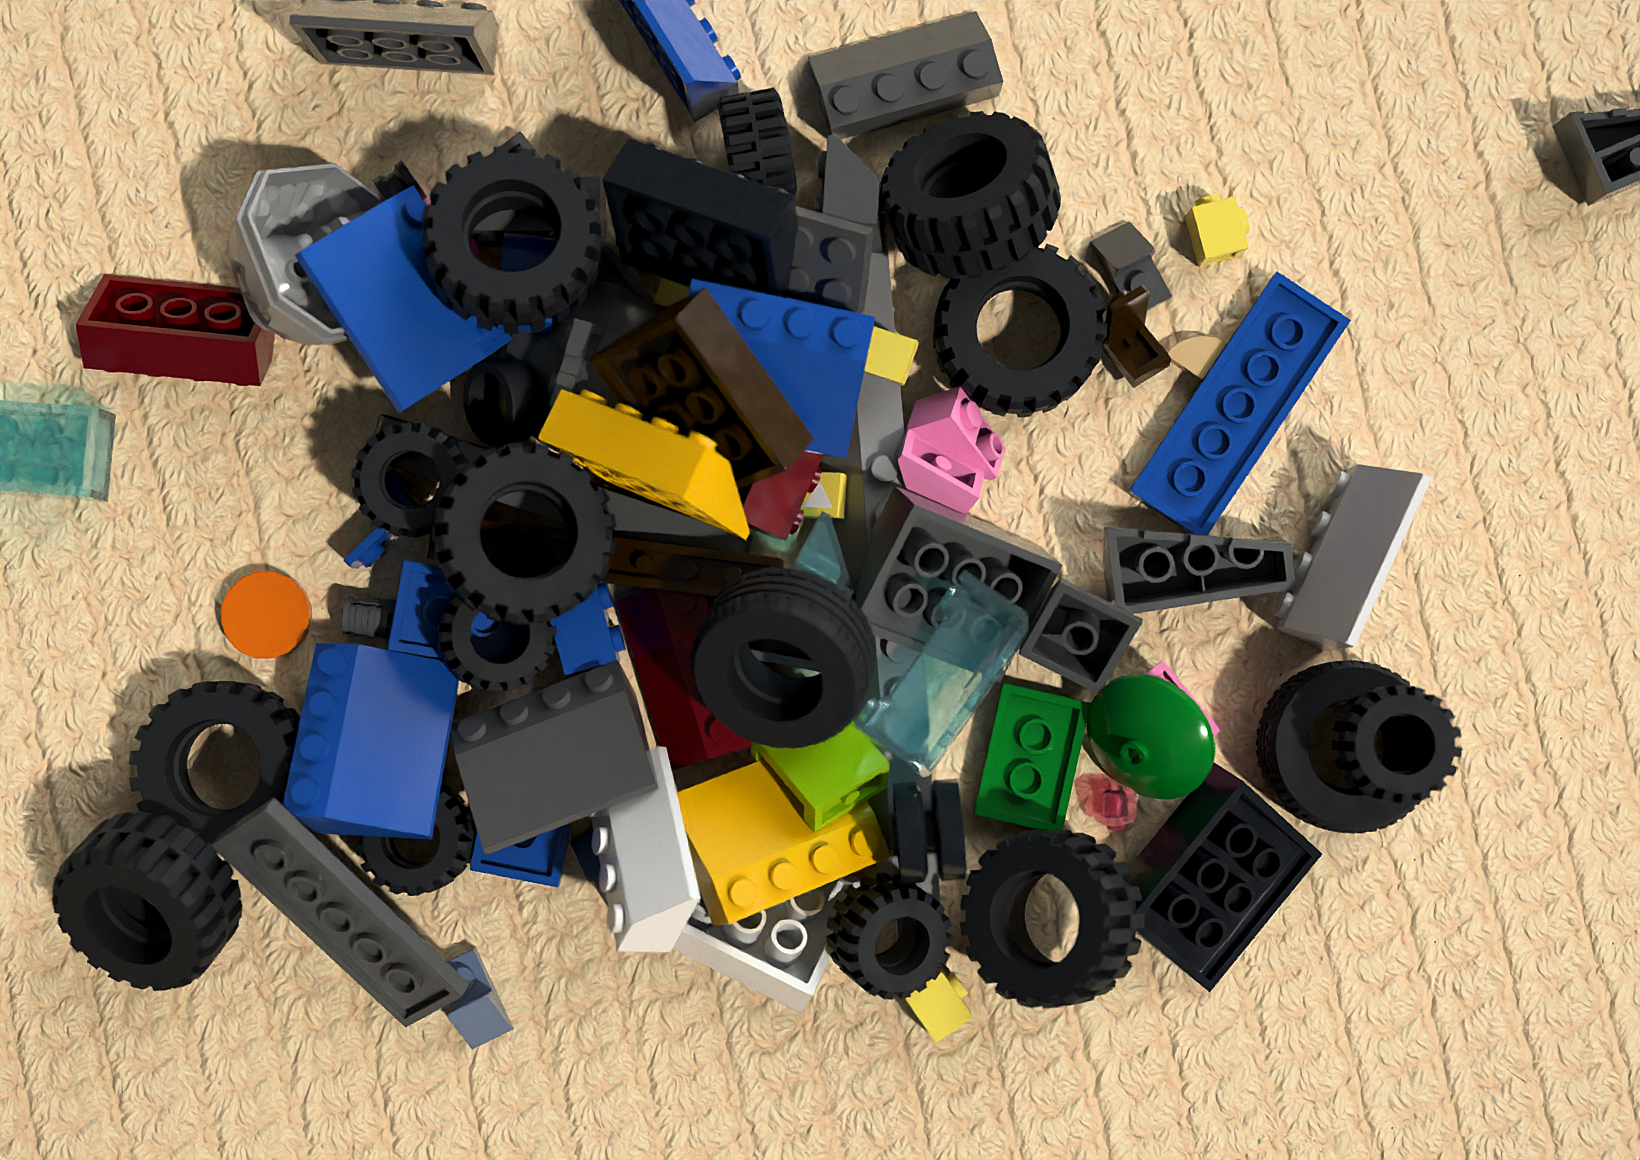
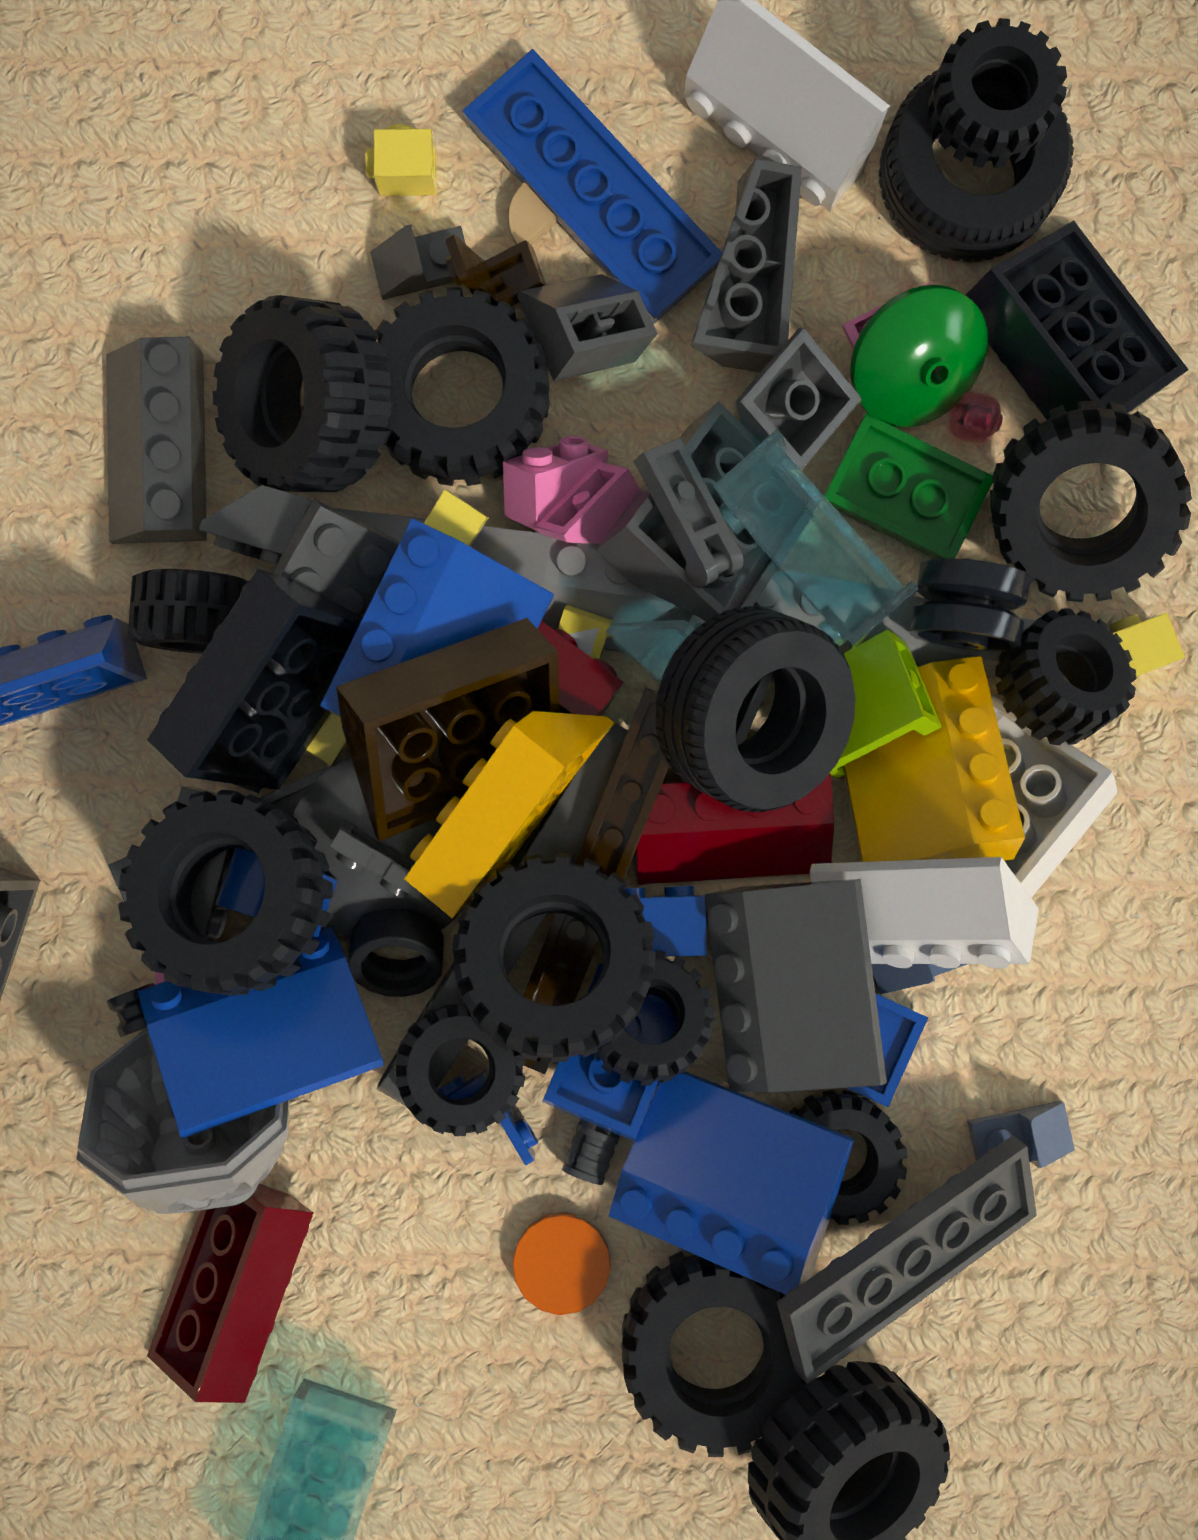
camera: 80 degrees left, 0 degrees up
(943, 558) = (689, 512): none -> dark grey plate
(1107, 430) = (587, 324): none -> dark grey slope

